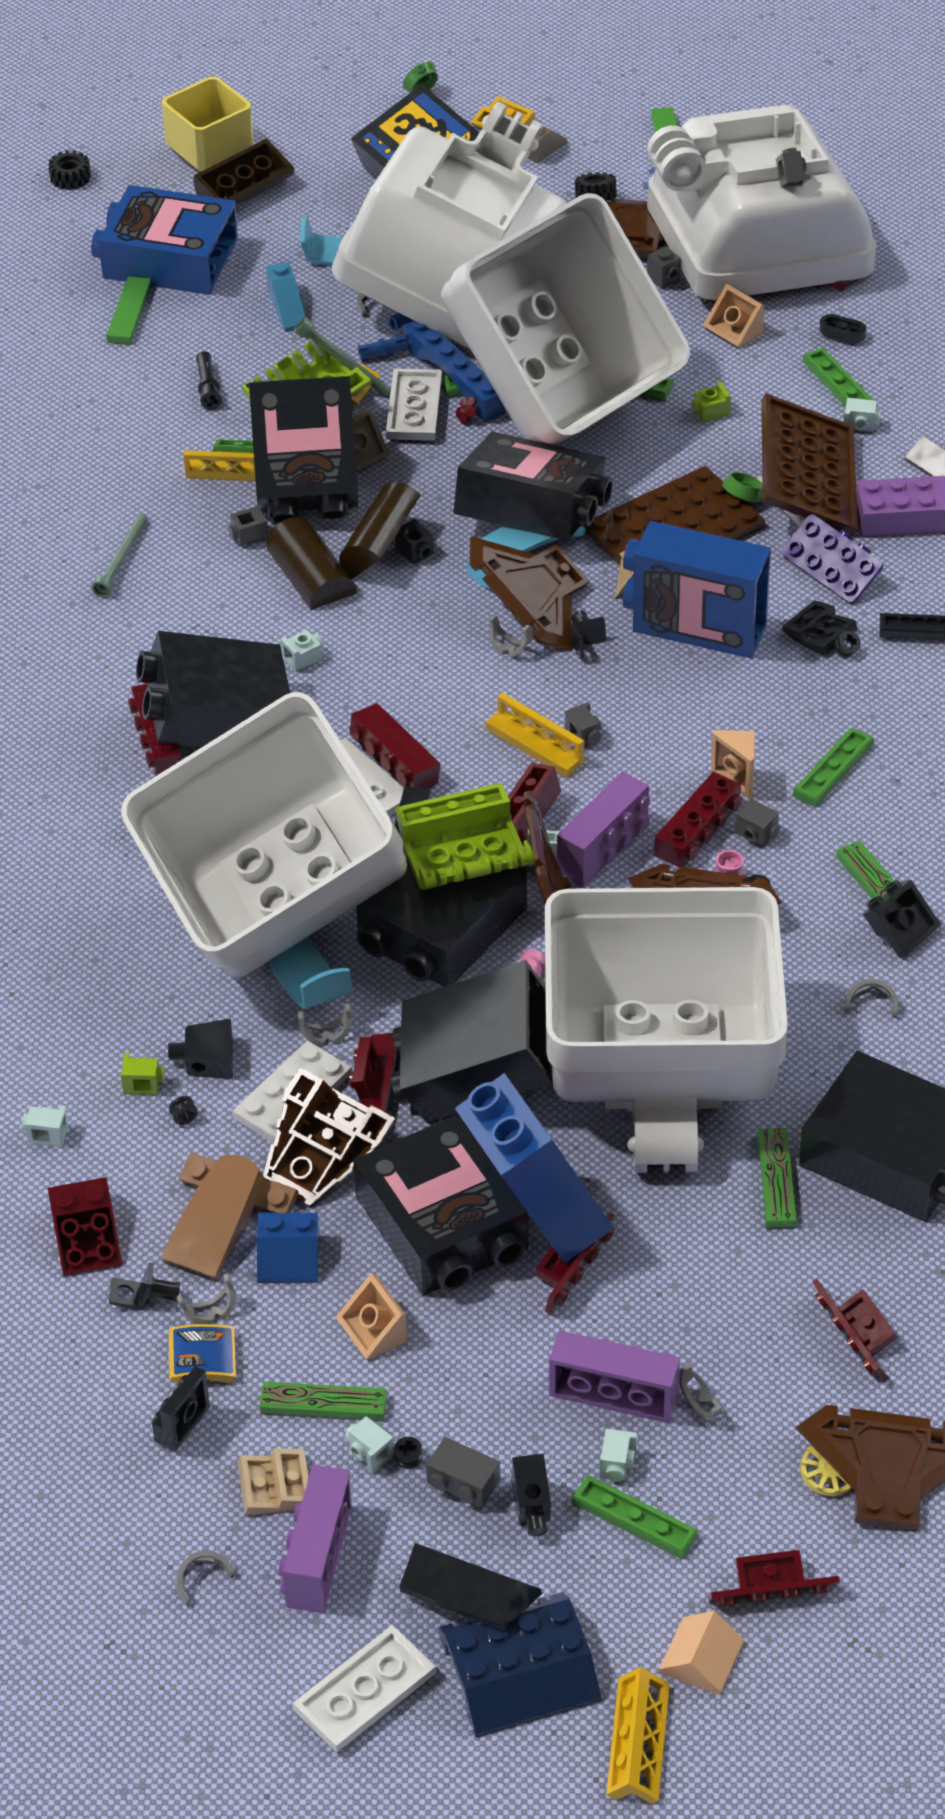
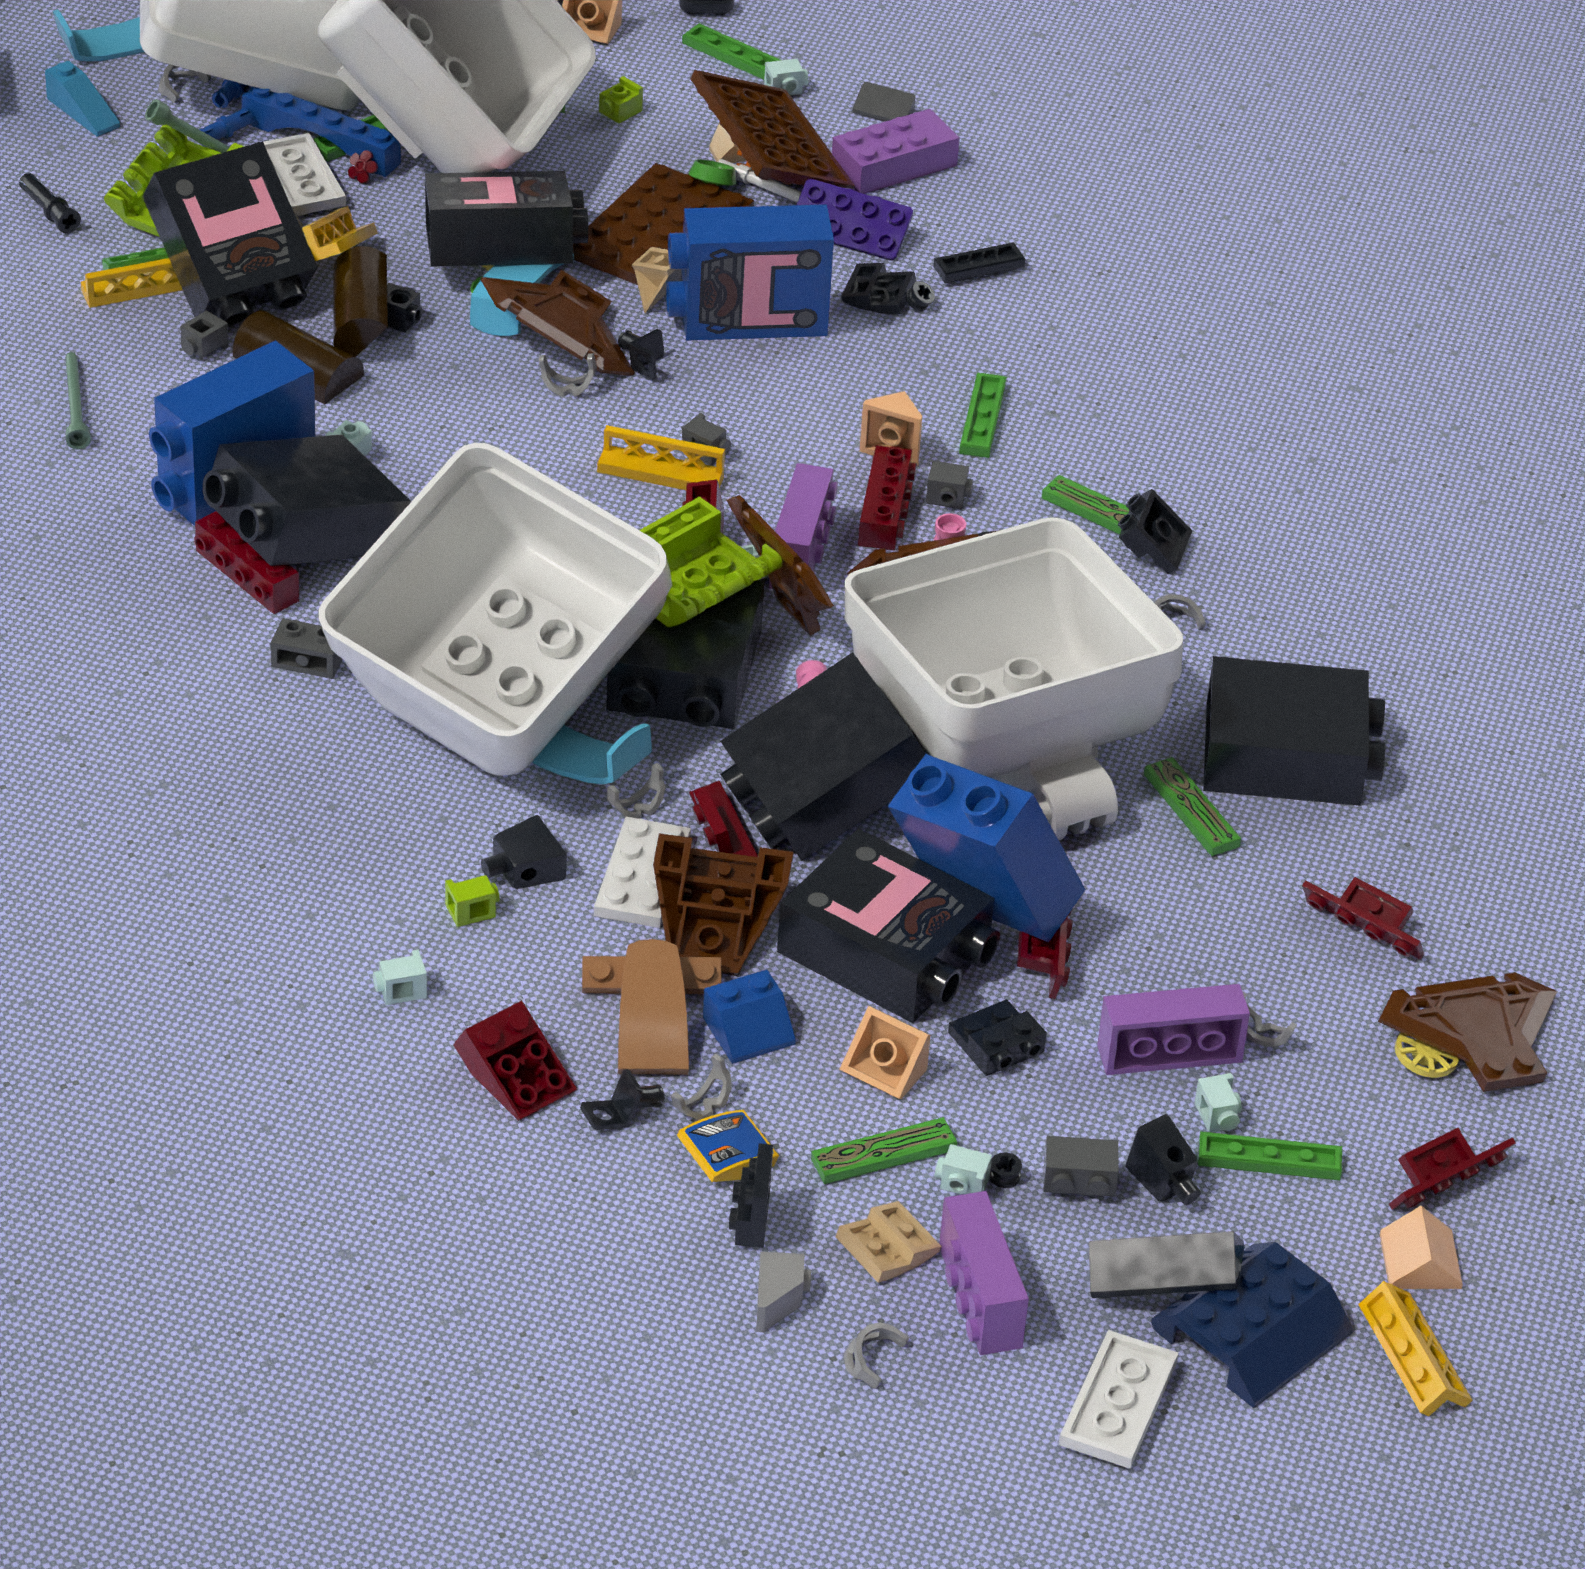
camera: 30 degrees left, 5 degrees down
(158, 1492) = (780, 1287): none -> light grey slope
(183, 1110) = (541, 920): black bush -> none
(198, 599) = (246, 400): none -> blue brick
(392, 471) = (339, 236): none -> yellow fence
(478, 1332) = (998, 1037): none -> black plate

